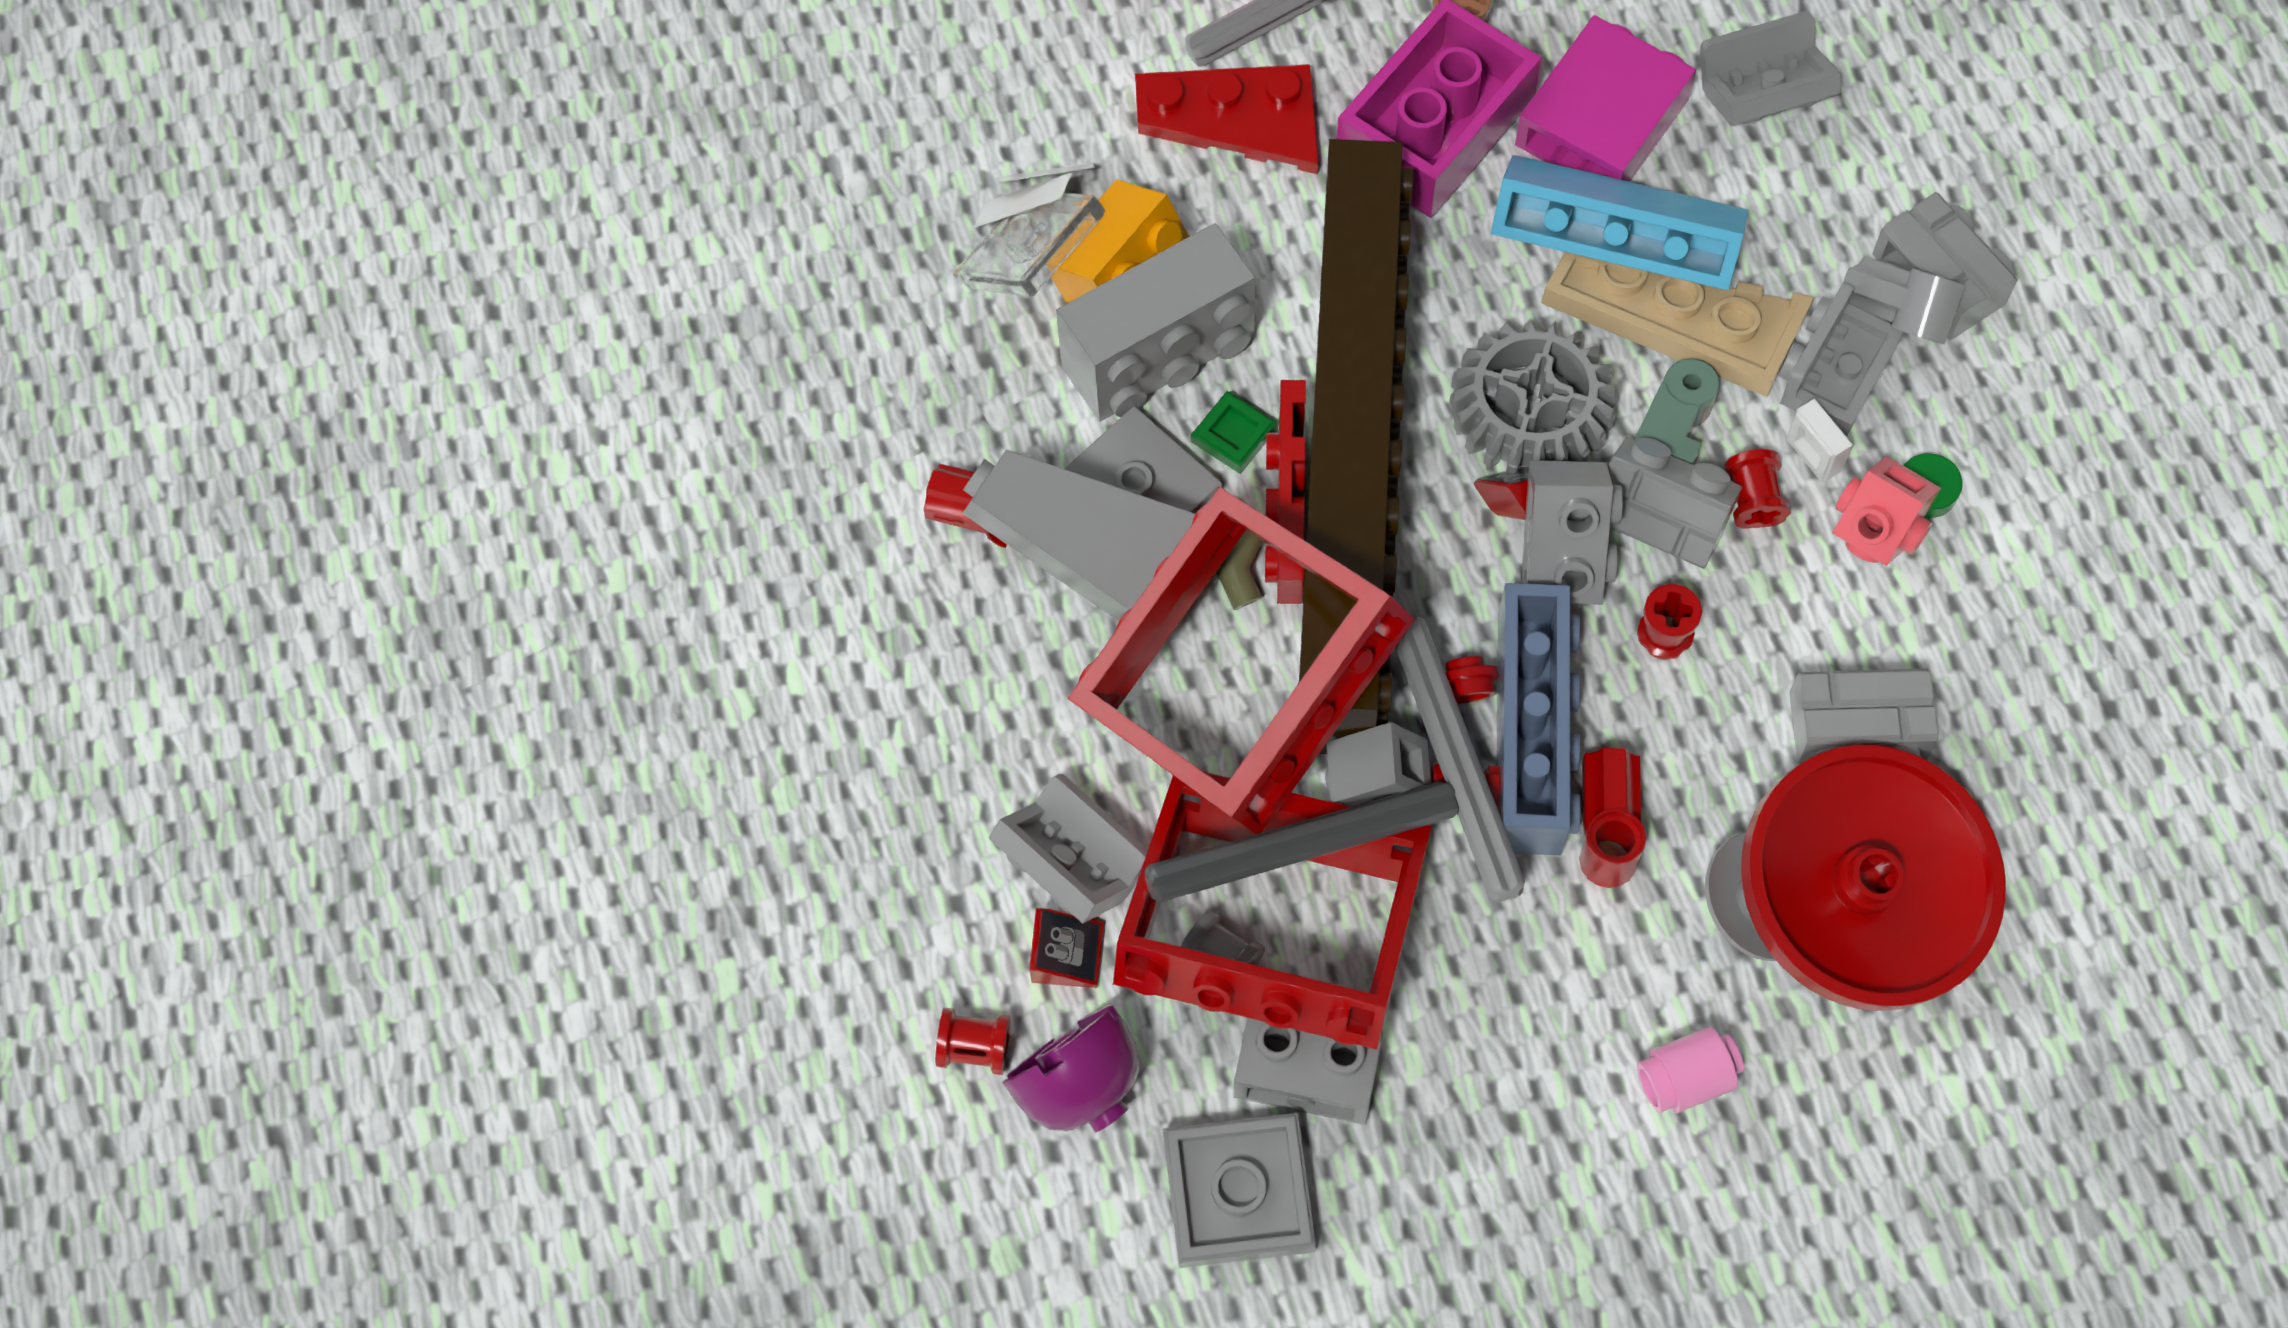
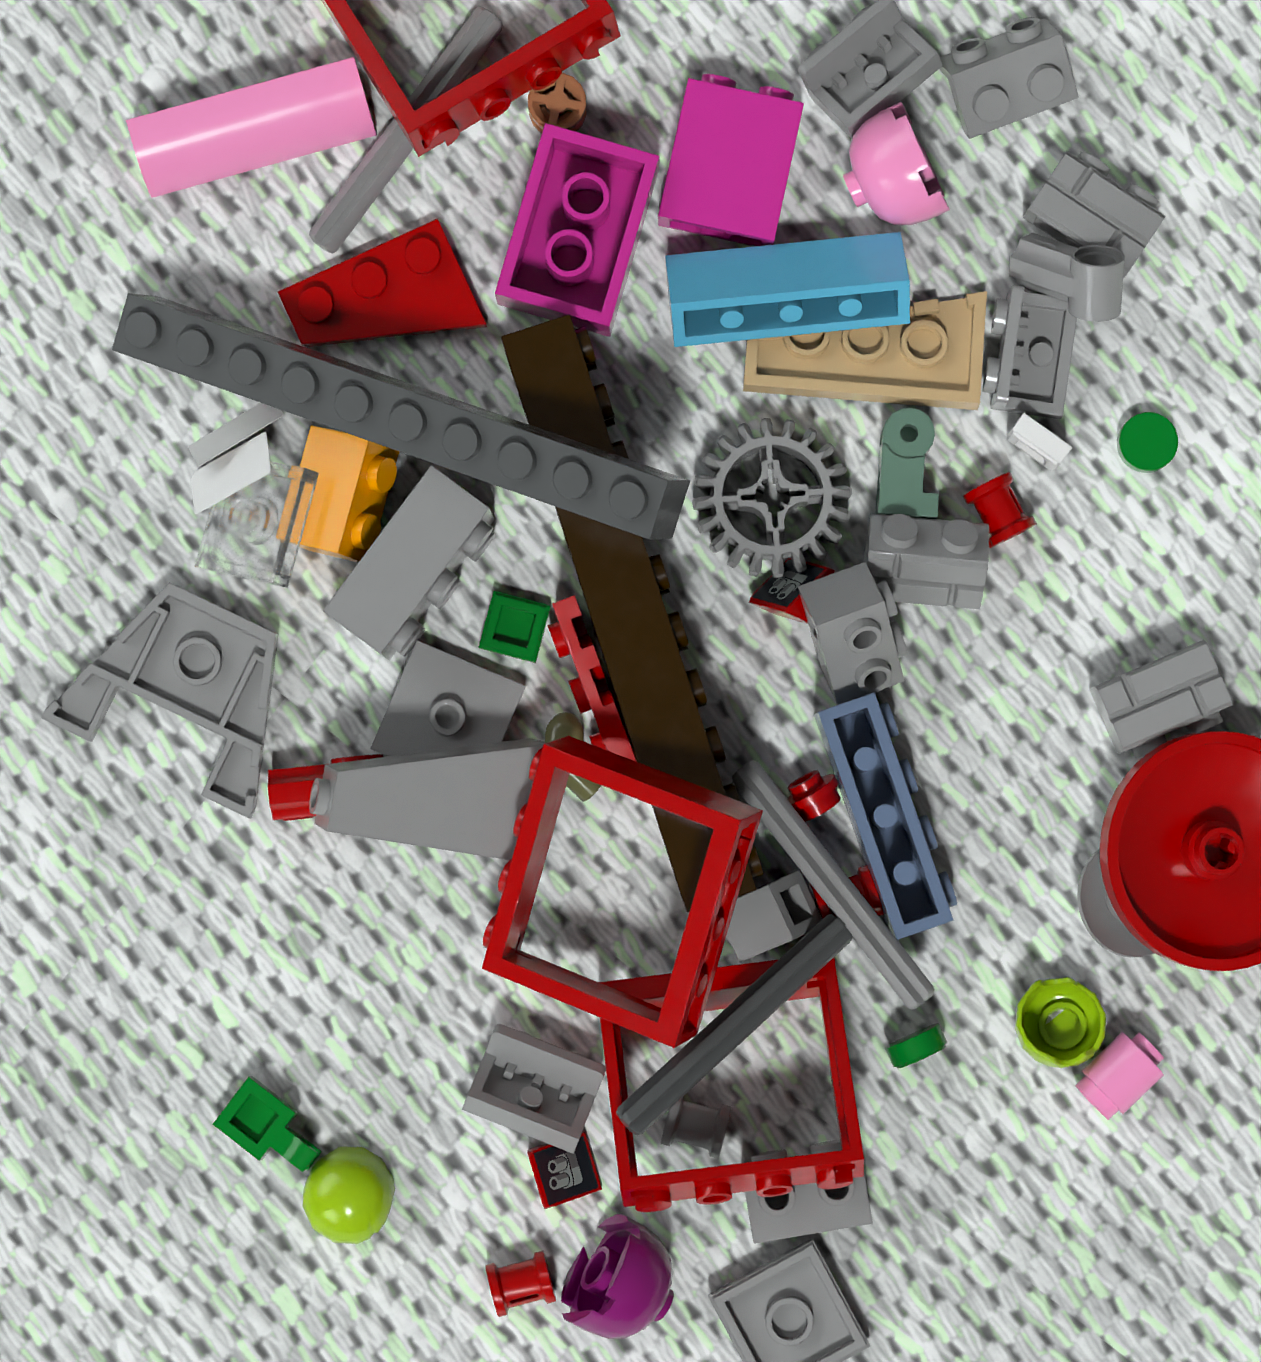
camera: 20 degrees left, 20 degrees up
(783, 786) = (260, 1122): none -> green plate
(836, 891) = (348, 1195): none -> lime hair
(912, 353) = (197, 666): none -> light grey wing
(1216, 178) = (402, 416): none -> dark grey brick
(1482, 959) = (916, 1046): none -> green tile
(1611, 814) = (977, 865): red piece -> none
(1634, 967) = (1069, 1036): none -> lime hair
(1673, 602) = (974, 655): red bush -> none
(1761, 155) = (893, 170): none -> bright pink cylinder
(1885, 512) = (1118, 508): coral brick -> none
(1902, 128) = (1009, 75): none -> light grey bracket

